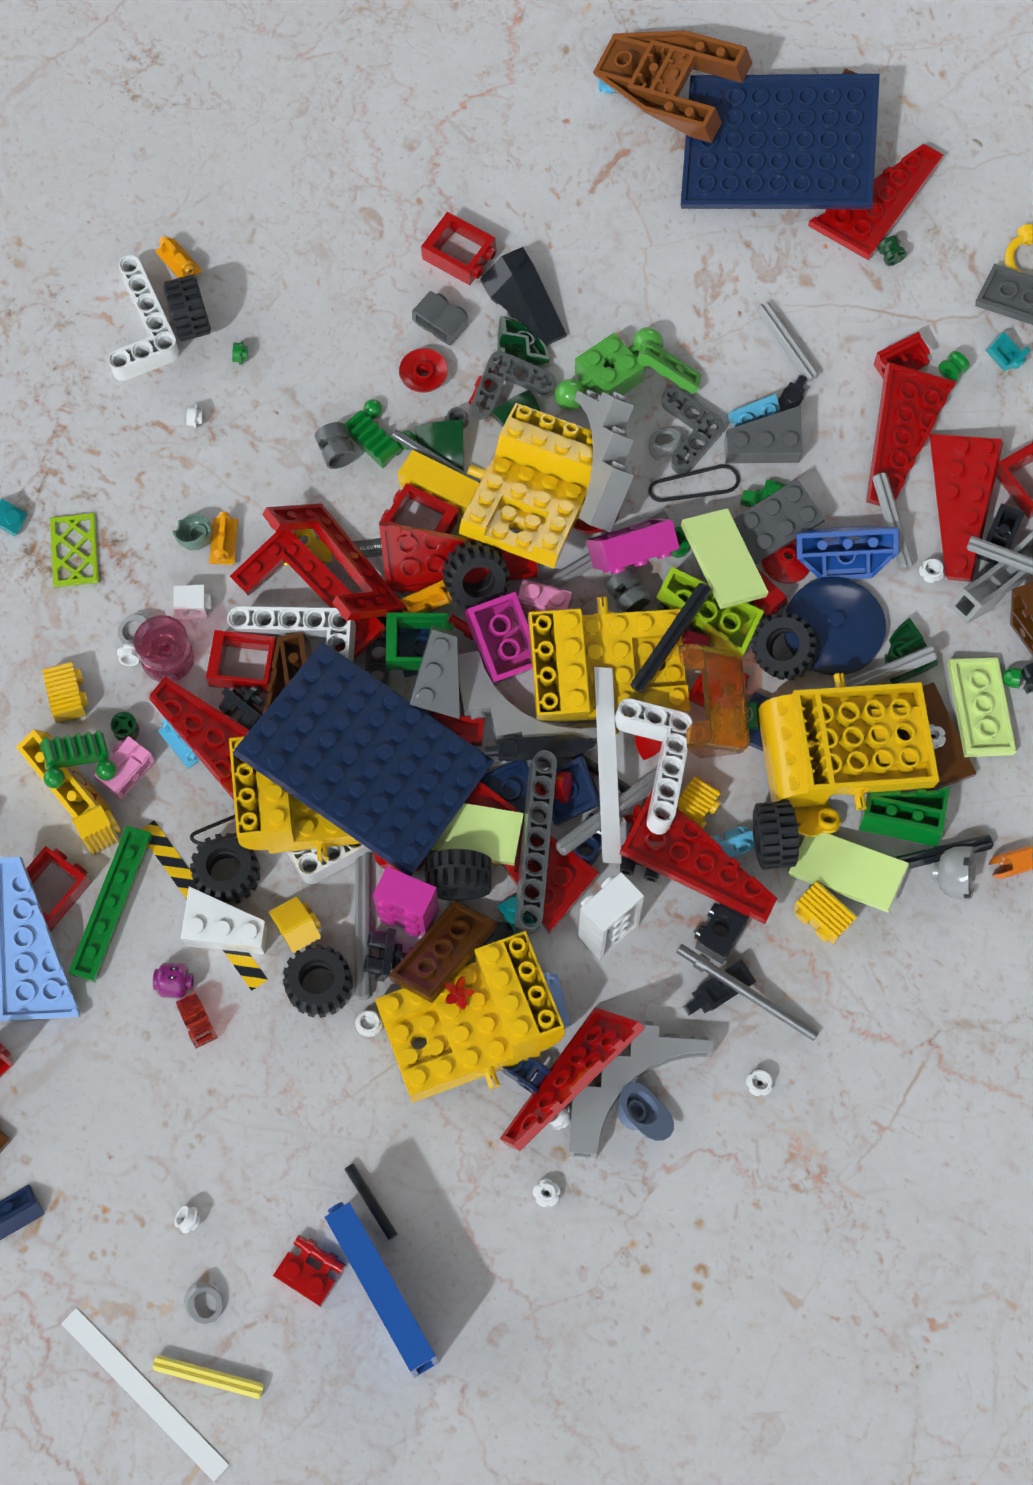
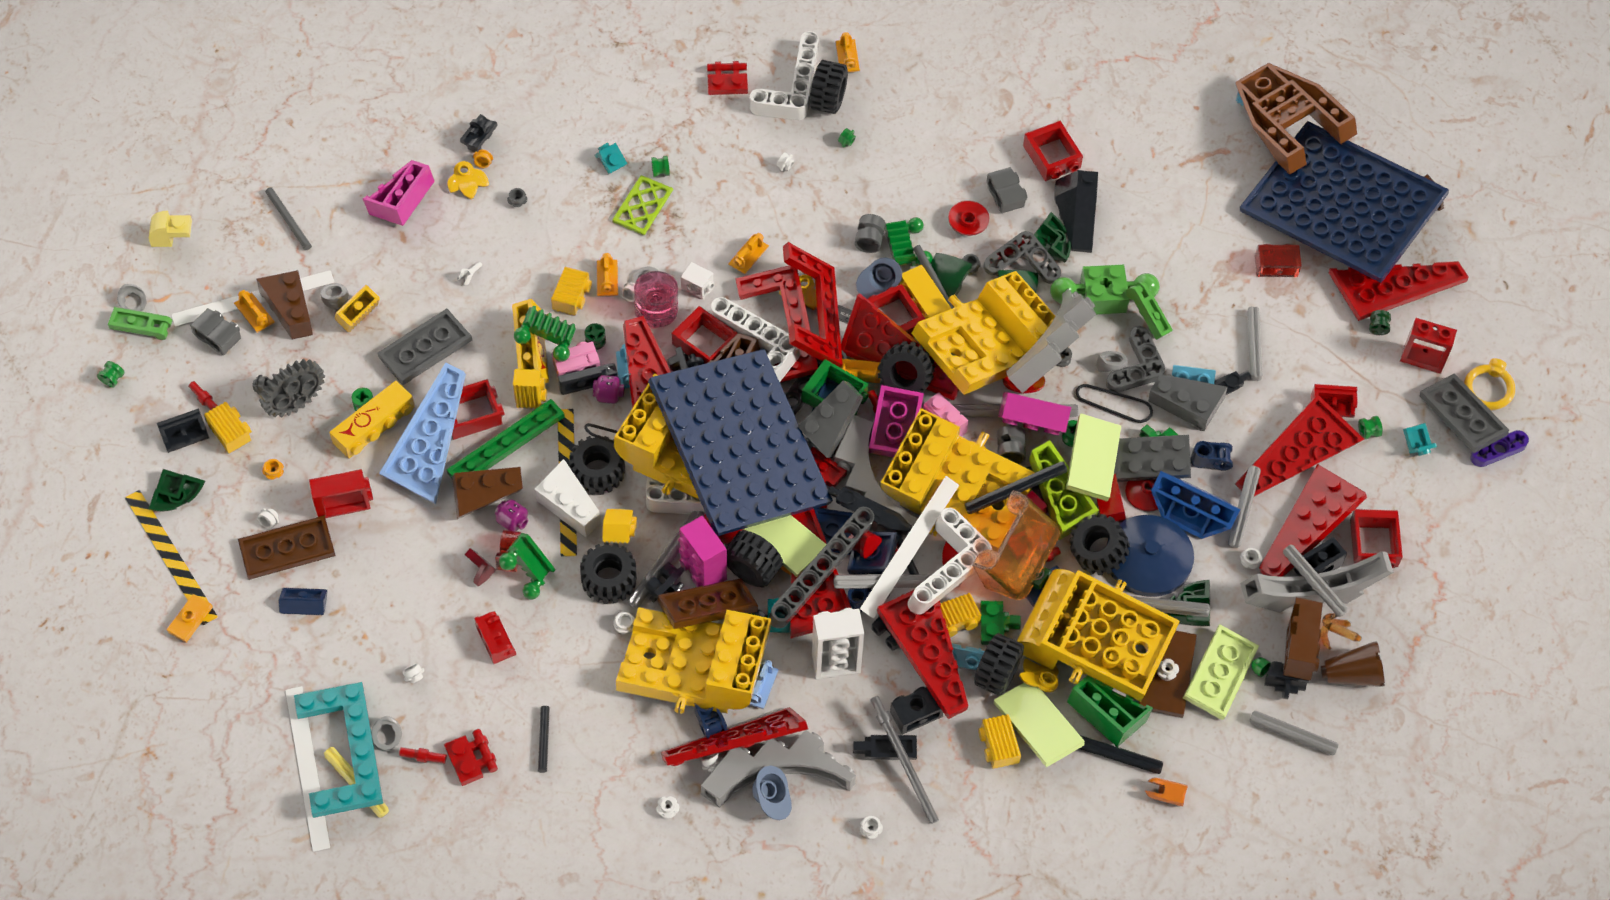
camera: 30 degrees right, 10 degrees down
(65, 496) = (660, 166): none -> green wheel
(71, 363) = (727, 83): none -> red plate
(91, 652) = (607, 276): none -> light orange hinge
(125, 969) = (481, 488): none -> reddish brown wedge
(148, 779) = (584, 379): none -> black hinge
(178, 1053) = (485, 568): none -> dark red tile
(179, 778) = (608, 389): none -> magenta head
(194, 532) = (731, 236): sand green hair -> none
(228, 1379) = (367, 788): none -> teal plate
(232, 1019) = (532, 562): none -> green gear
(245, 1124) = (494, 637): none -> red hinge
(258, 1301) = (422, 755): none -> red bar
(378, 490) = (879, 277): none -> sand blue piece
(381, 1289) = (507, 792): blue brick -> none
(458, 993) = (696, 633): red plant -> none
(735, 789) = (996, 621): none -> green hinge
(754, 241) = (1278, 260): none -> clear red brick
(830, 484) = (1214, 456): none -> dark blue piece
(956, 872) = (1118, 771): light grey cylinder -> none
(957, 251) = (1425, 356): none -> red window

